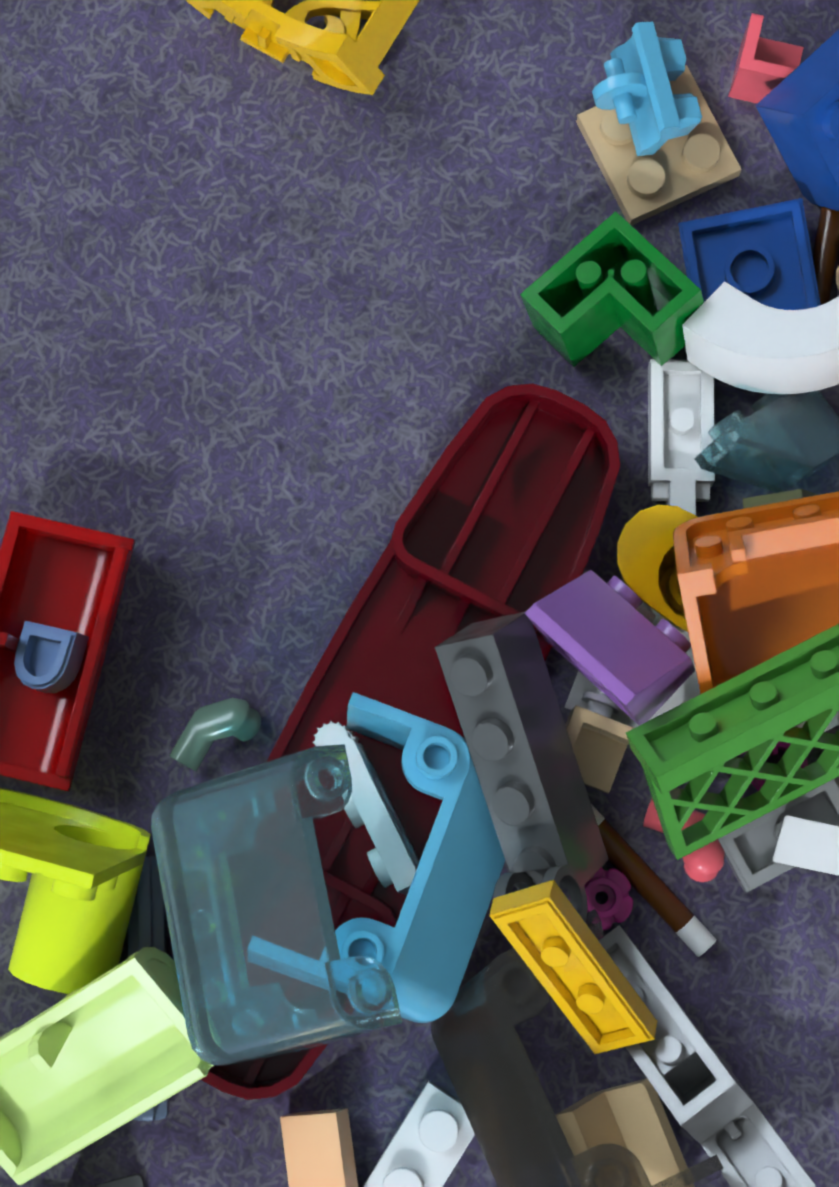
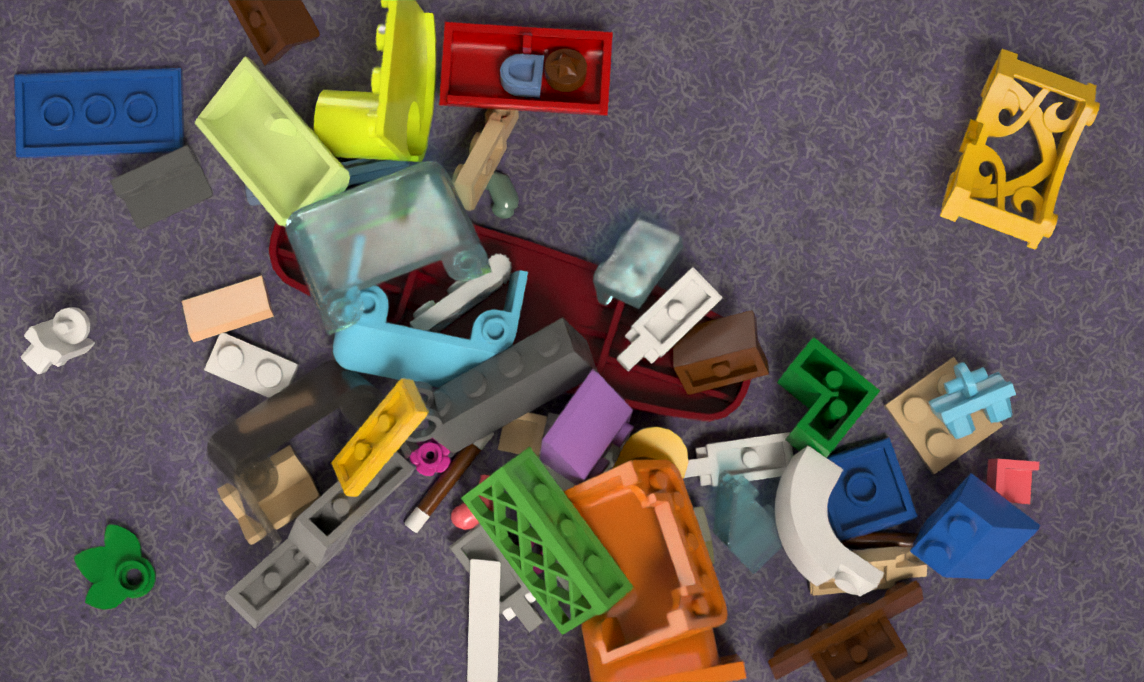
camera: 75 degrees right, 5 degrees up
(54, 591) = (565, 70): none -> reddish brown tile
(158, 735) = (484, 156): none -> tan hinge
(367, 532) = (636, 264): none -> clear light blue bracket
(460, 496) = (669, 319): none -> white hinge
(521, 431) = (720, 353): none -> reddish brown panel

